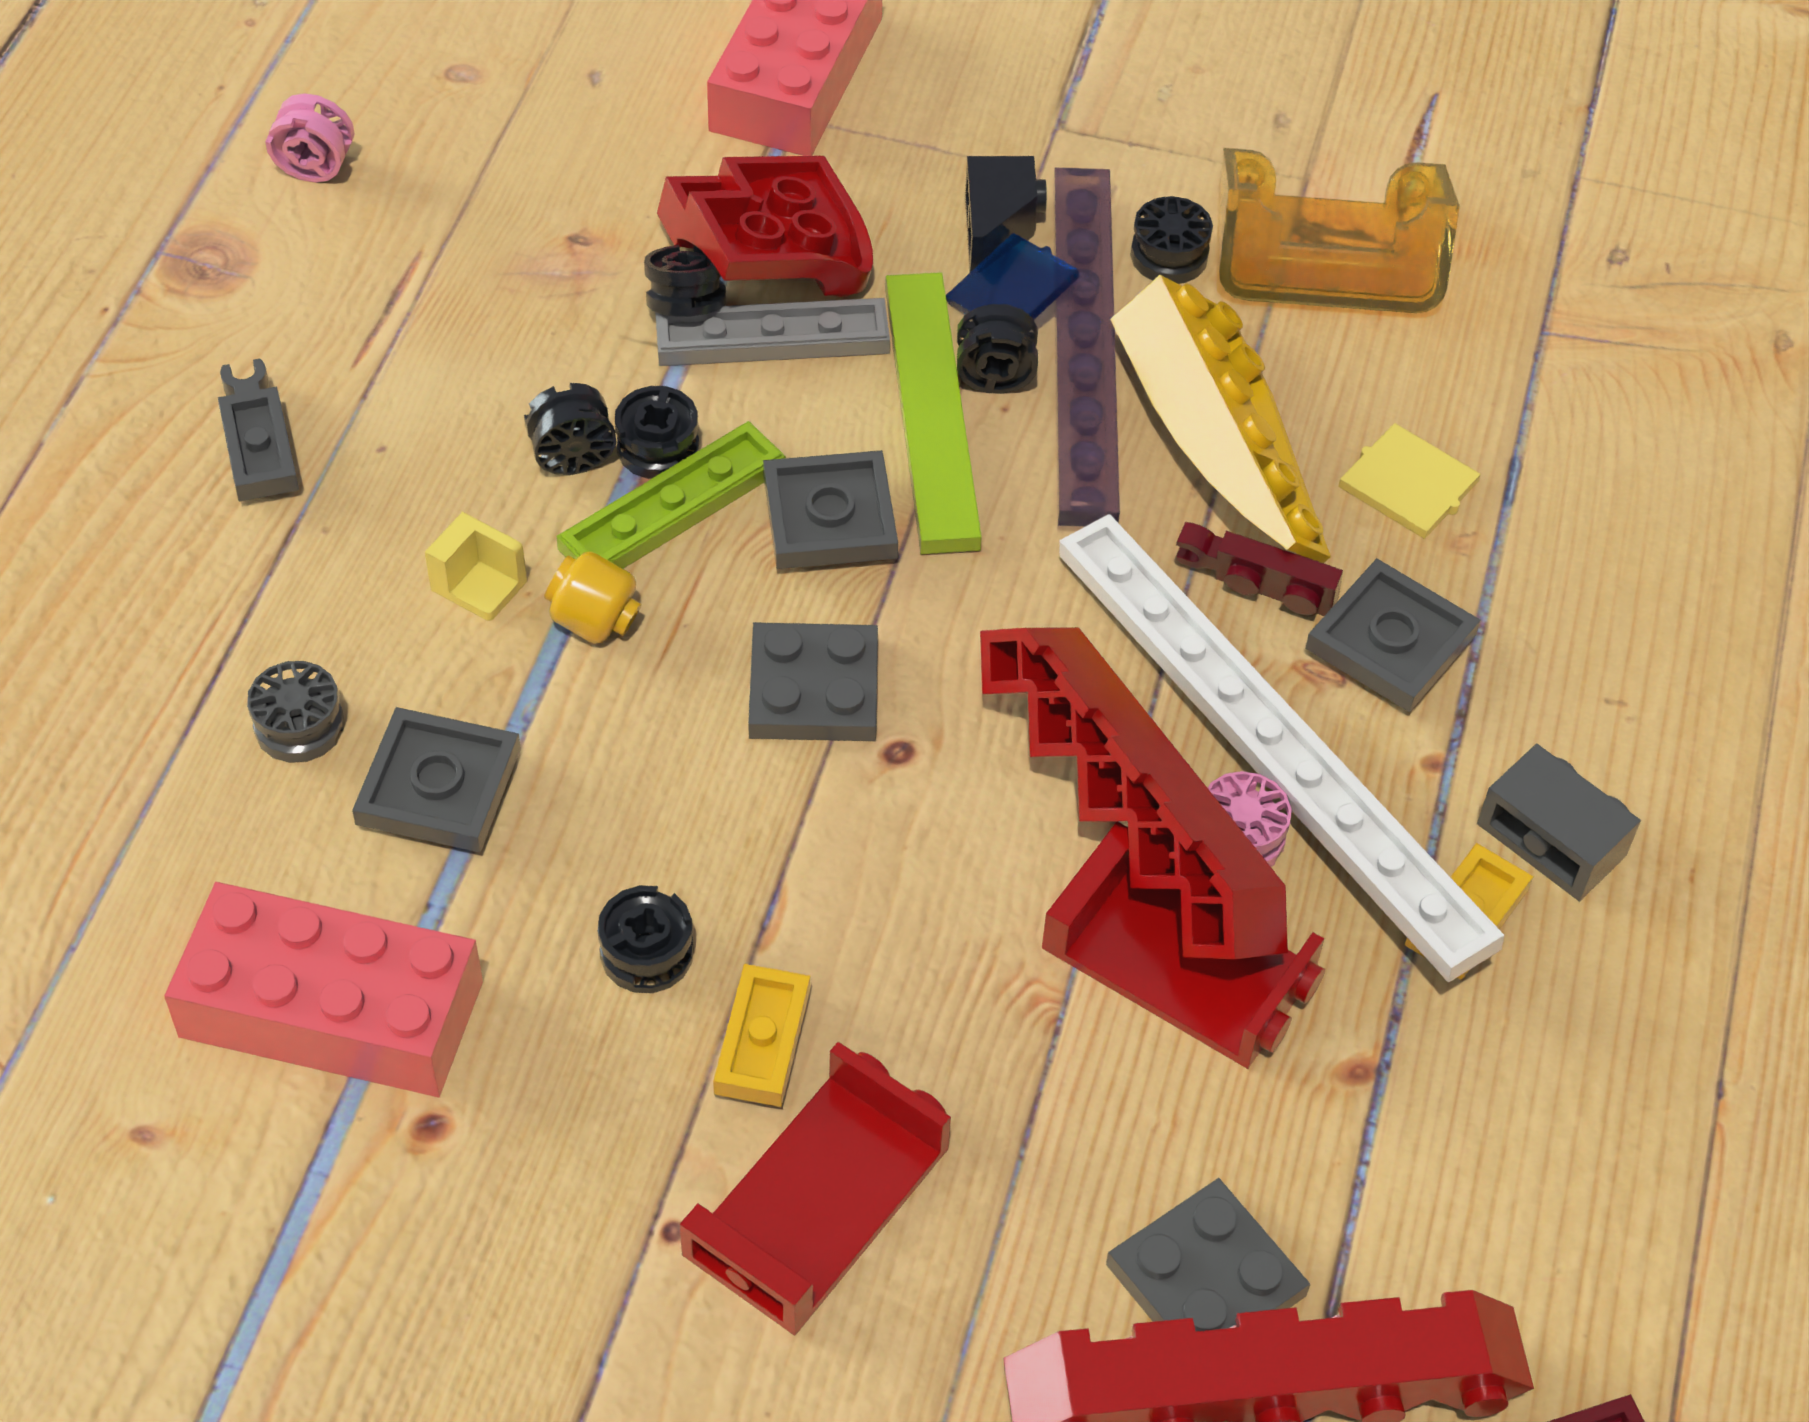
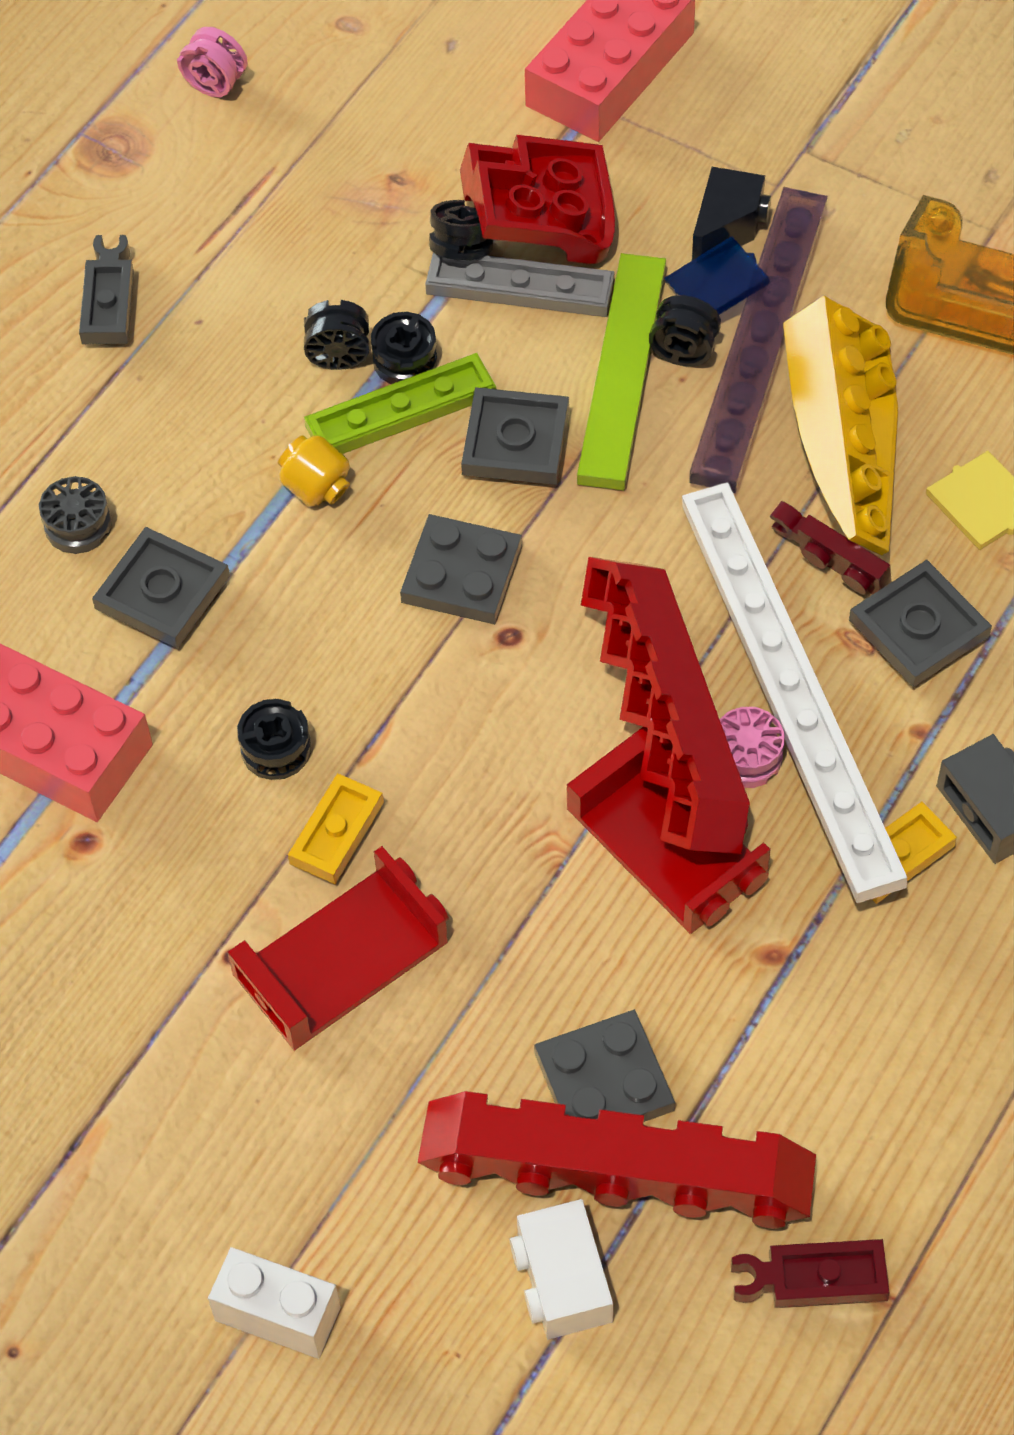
camera: 20 degrees right, 5 degrees up
(476, 566) = (236, 429): light yellow panel -> none
(1171, 239) = (859, 264): black wheel -> none

